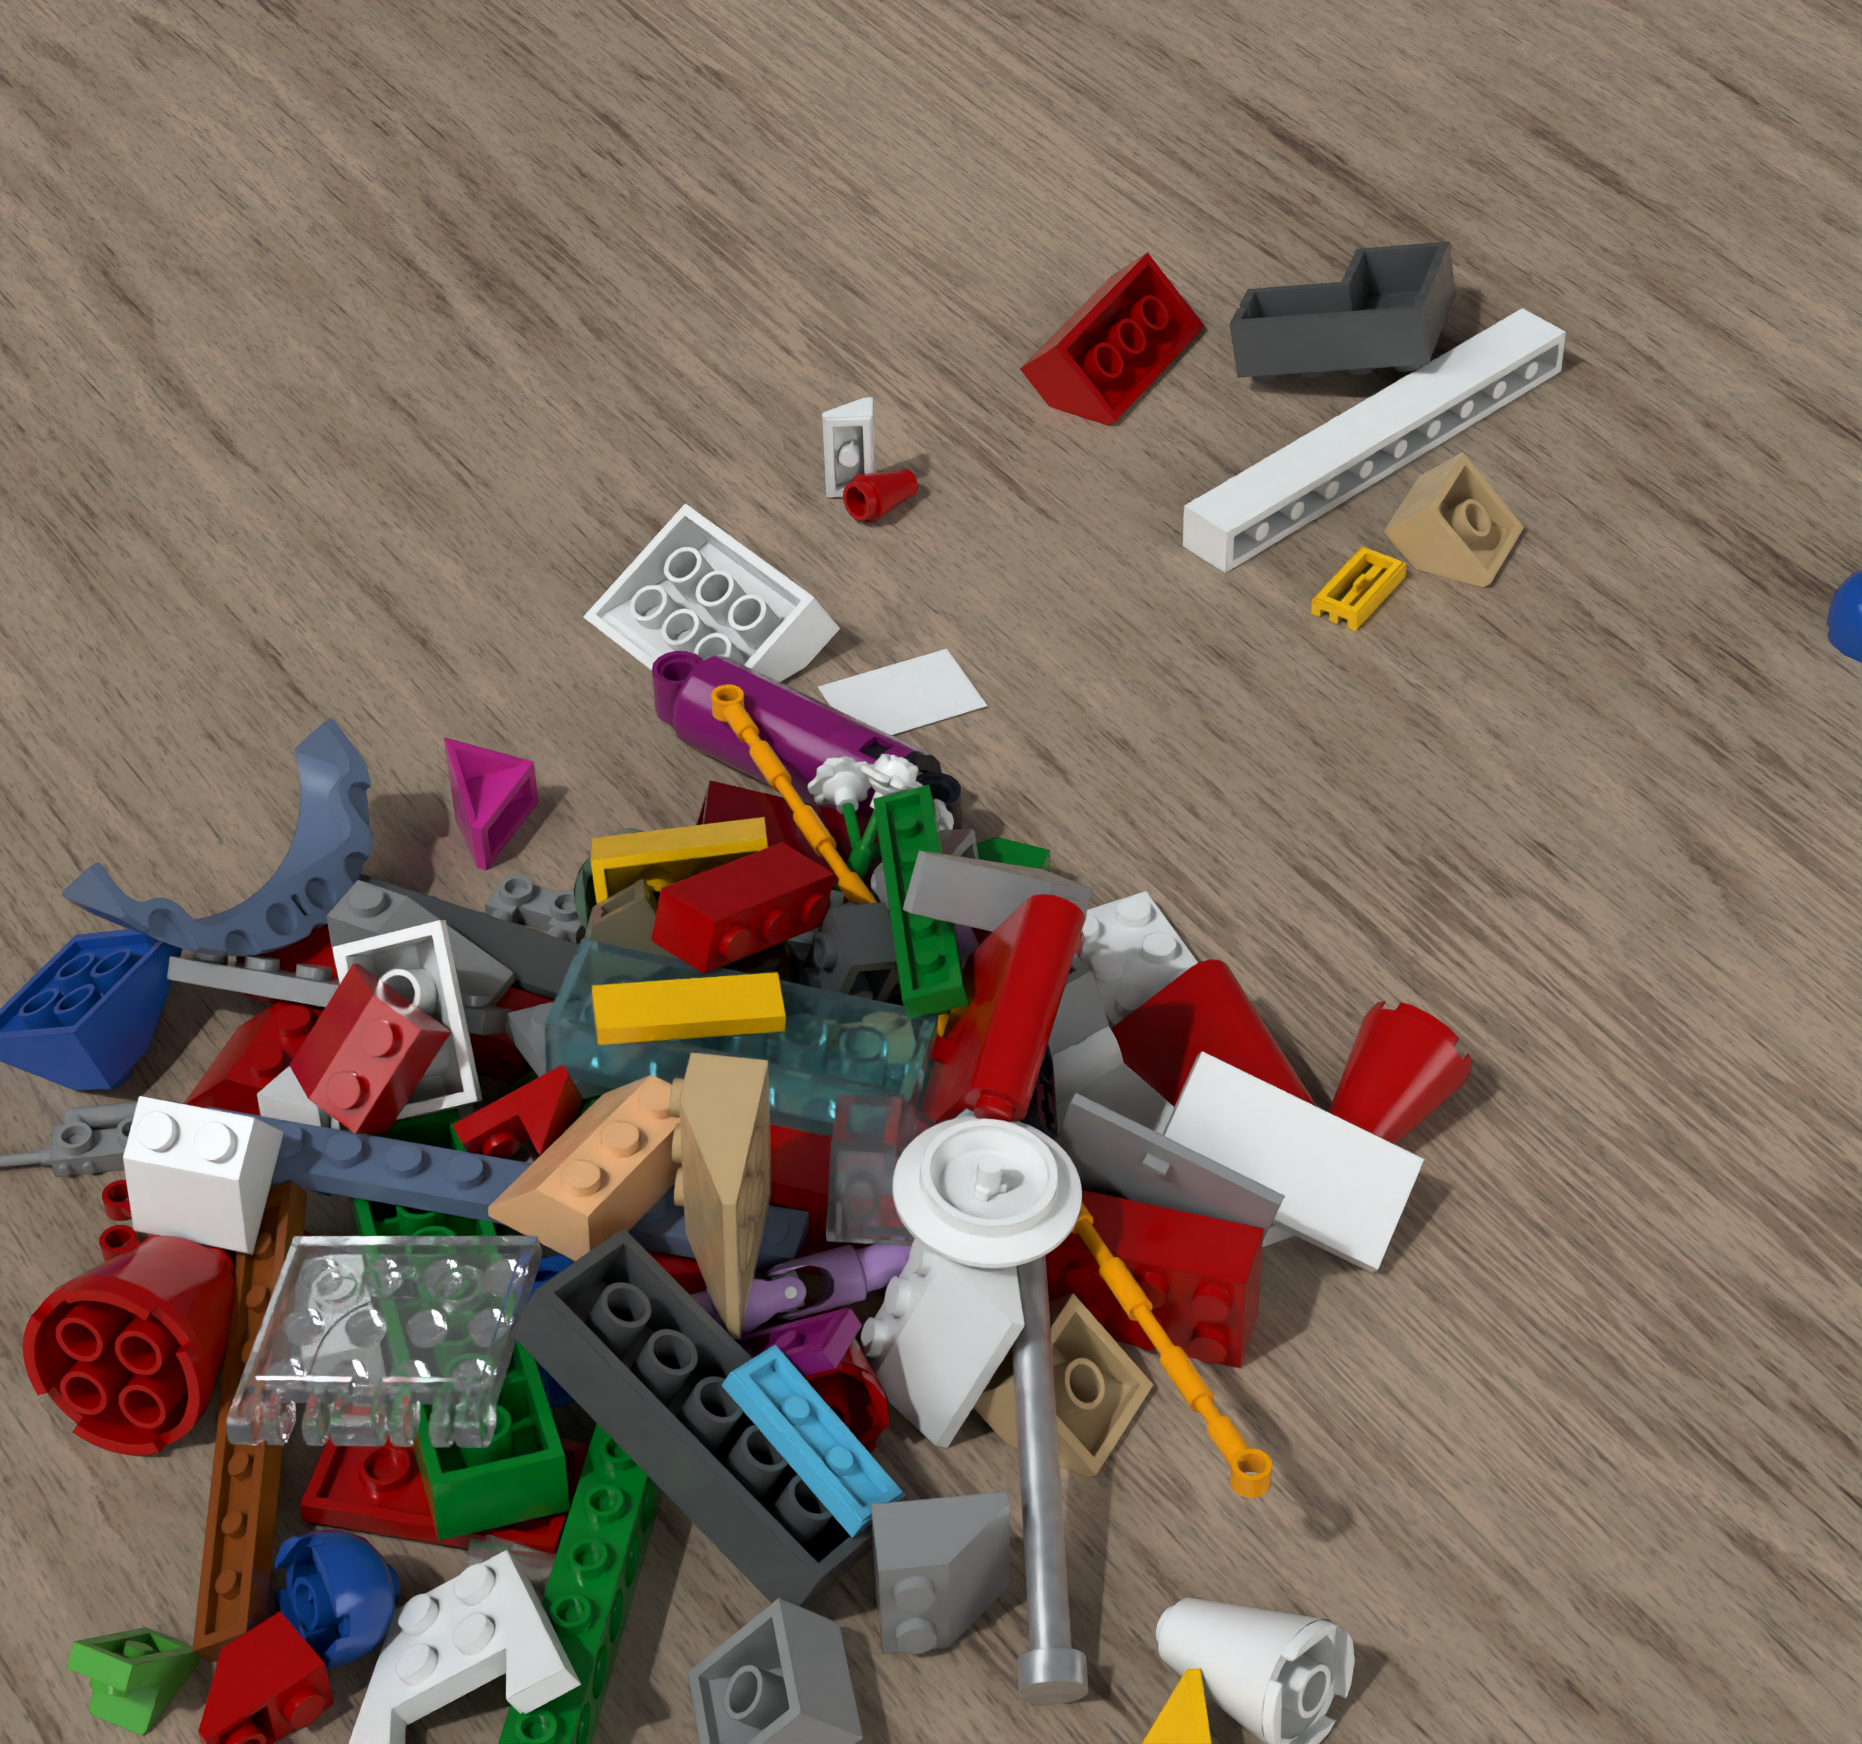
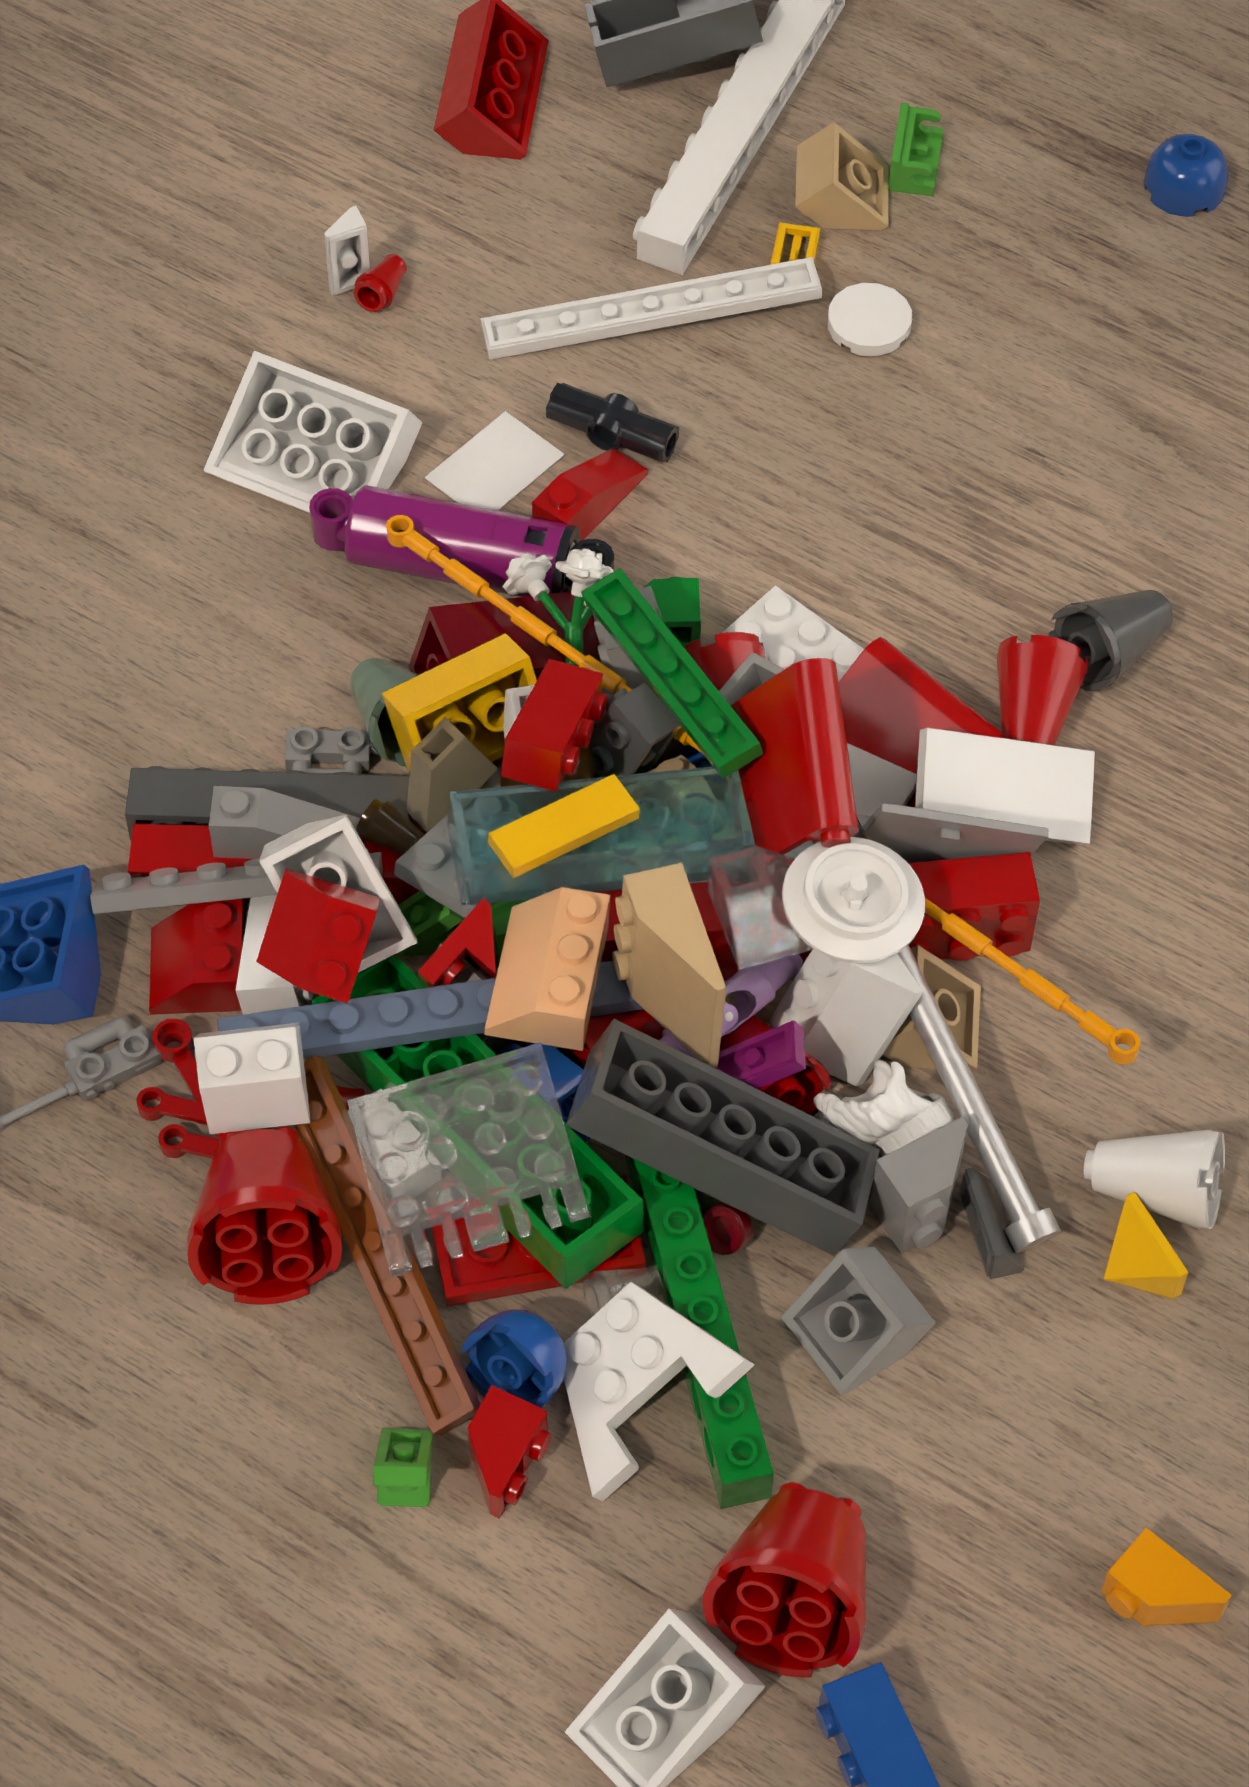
camera: 25 degrees left, 15 degrees up
(315, 874) = (154, 790): sand blue windscreen -> none
(489, 797) = (235, 668): dark pink slope -> none
(527, 979) = (388, 828): none -> dark brown cone
(675, 1546) = (727, 1229): none -> dark red tile
(811, 1438) = (809, 1125): medium azure tile -> none
(940, 1460) = (888, 1111): none -> white hair
(981, 891) = (745, 657): light grey slope -> none
(984, 742) = (589, 491): none -> red slope
(1002, 1642) = (988, 1225): none -> dark grey slope
(1054, 684) = (612, 422): none -> black piece
(1167, 589) = (651, 308): none -> white tile
(1415, 664) = (869, 319): none -> white tile
(1526, 1045) = (1113, 632): none -> dark grey cone
(1559, 517) = (915, 151): none -> bright green hinge

